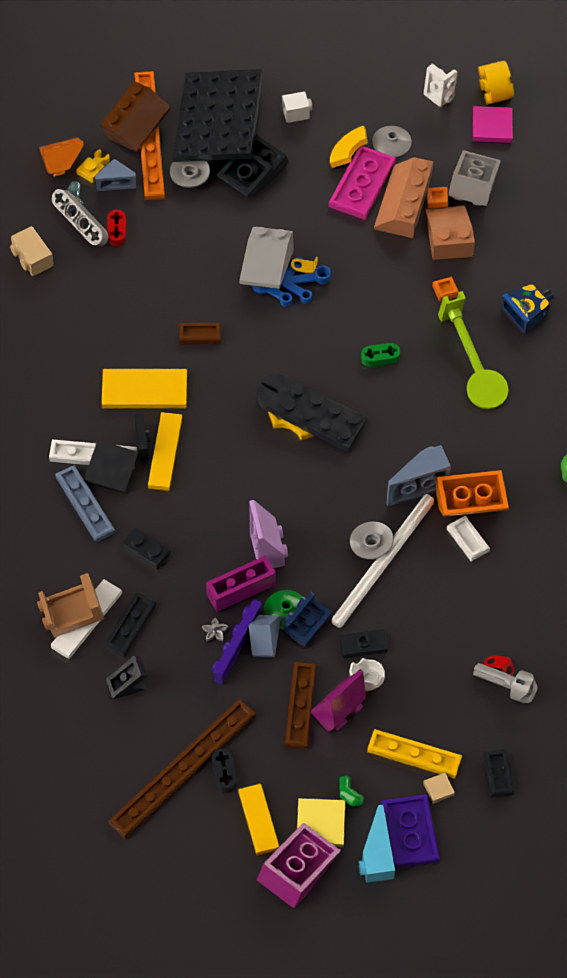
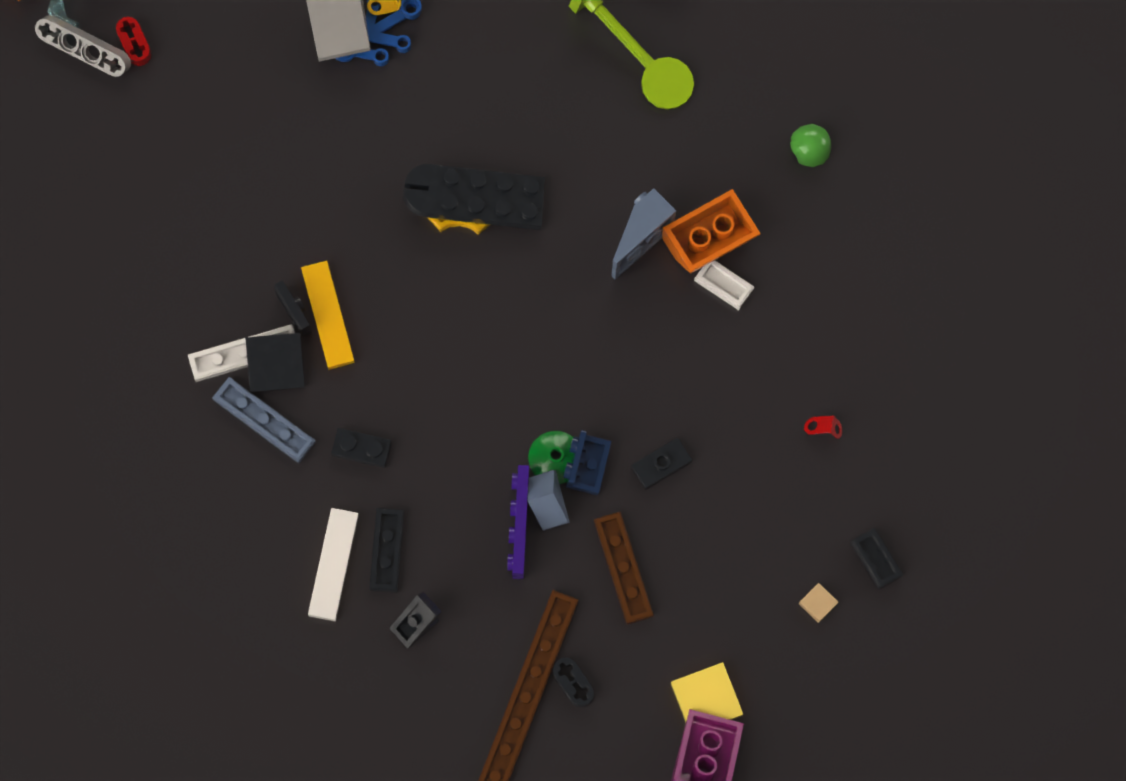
camera: 25 degrees left, 15 degrees up
(32, 251) = (45, 115): tan brick -> none
(71, 608) = (311, 561): medium nougat panel -> none
(144, 388) = (265, 243): yellow tile -> none
(199, 333) = (298, 143): reddish brown tile -> none
(215, 630) = (487, 516): light grey plant -> none
(241, 583) = (494, 450): magenta brick -> none
(258, 819) = (637, 724): yellow tile -> none
(266, 535) = (498, 383): lavender slope -> none
(341, 702) = (669, 550): magenta slope -> none
(349, 795) = (723, 653): green arm -> none
(371, 533) = (618, 321): light grey dish -> none
(373, 673) = (684, 501): white hair -> none
(377, 855) = (785, 709): medium azure slope -> none
(380, 354) = (527, 92): green beam -> none
(381, 563) = (640, 351): white axle -> none
(411, 831) = (808, 666): dark purple tile -> none
(414, 753) = (774, 573): yellow tile -> none
(522, 686) = (844, 444): light grey piece -> none

